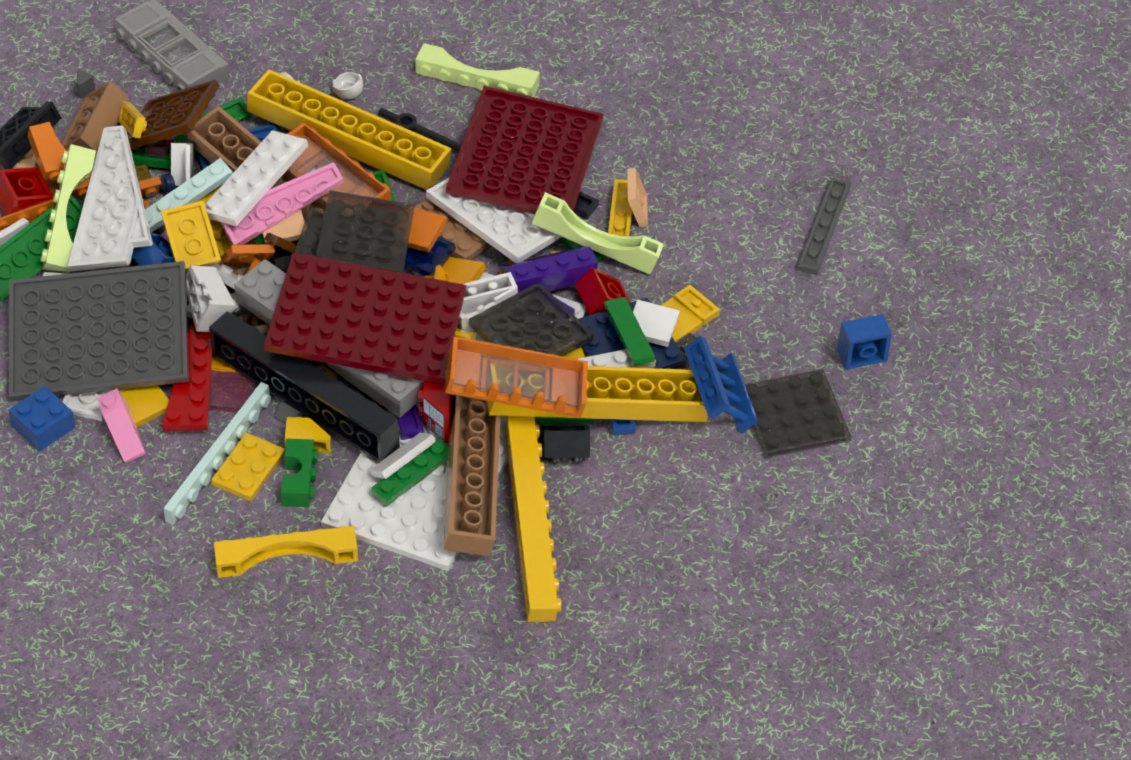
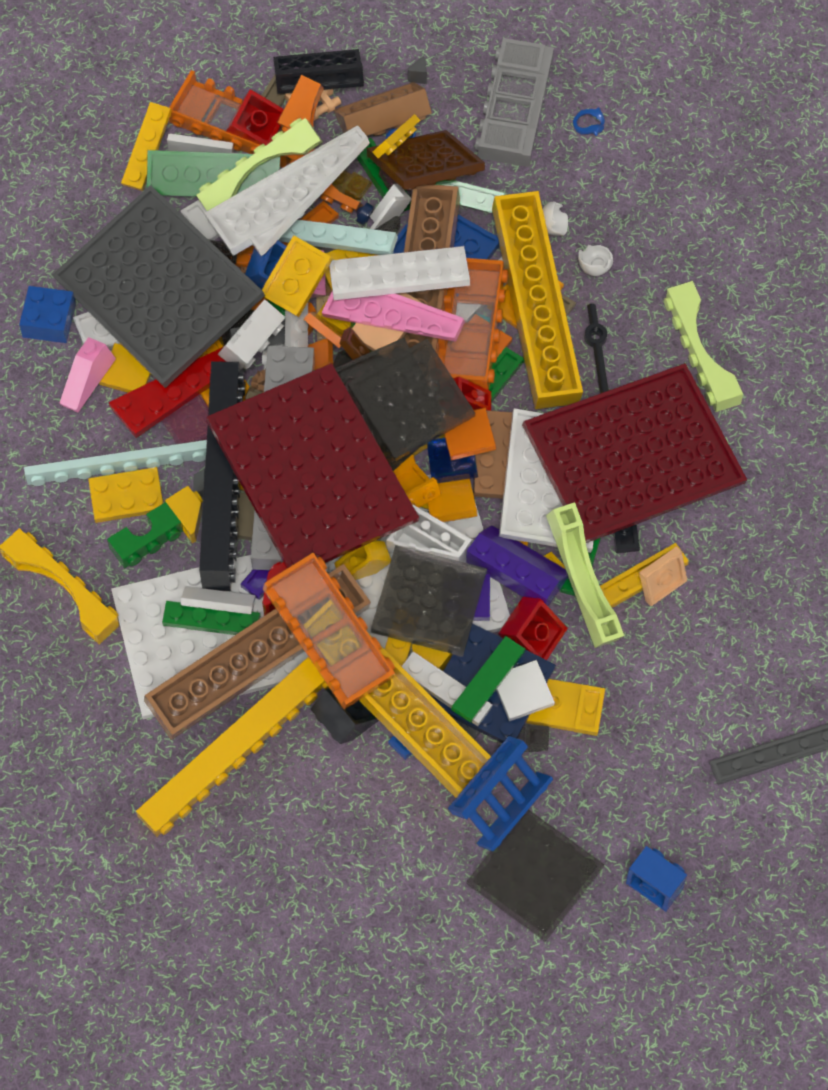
camera: 55 degrees right, 15 degrees up
(239, 24) = (593, 129): none -> blue piece

